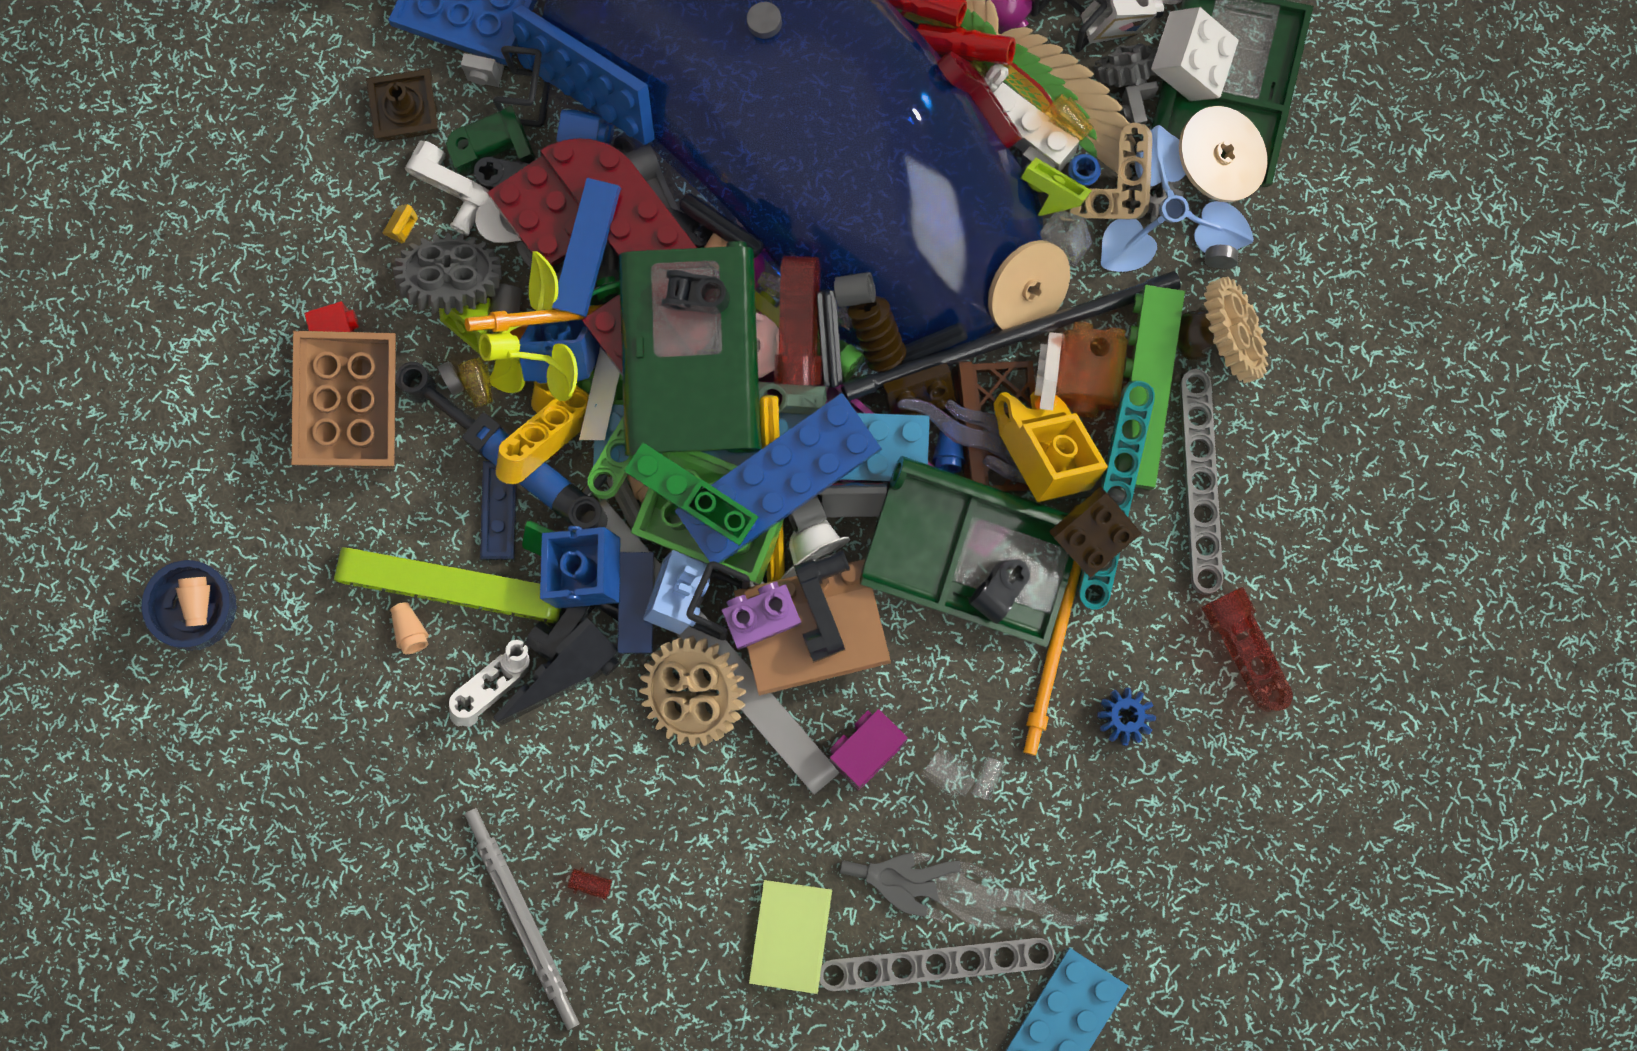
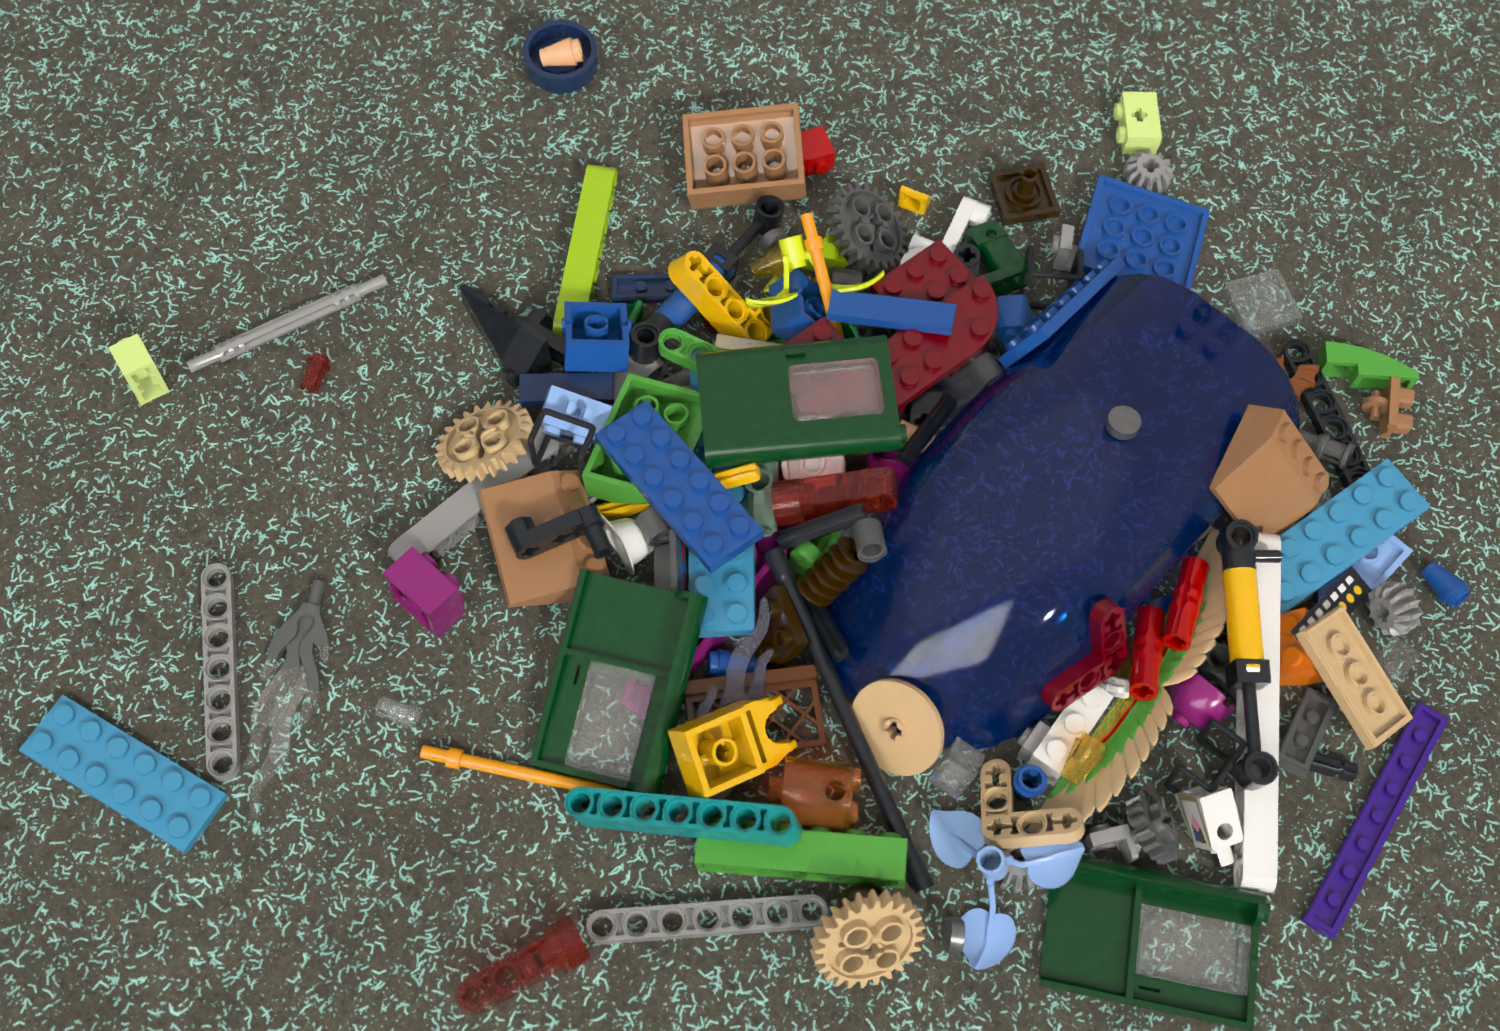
camera: 80 degrees right, 15 degrees down
(408, 630) = (545, 223): light nougat cone -> none
(513, 665) = (515, 302): white beam -> none
(688, 290) = (848, 386): black piece -> none
(691, 494) = (658, 403): green slope -> none
(761, 615) = (547, 480): medium lavender brick -> none
(790, 936) = (254, 538): yellowish green tile -> none
(949, 774) = (403, 672): clear brick -> none
(997, 594) = (577, 701): black piece -> none
(1048, 371) = (804, 744): white plate -> none
(1062, 190) = (1006, 752): lime slope -> none
(1095, 532) = (635, 785): dark brown plate -> none
(1129, 728) = (471, 843): blue gear -> none
(1194, 54) = (1171, 887): white brick -> none
(1202, 148) = (1037, 928): piece -> none

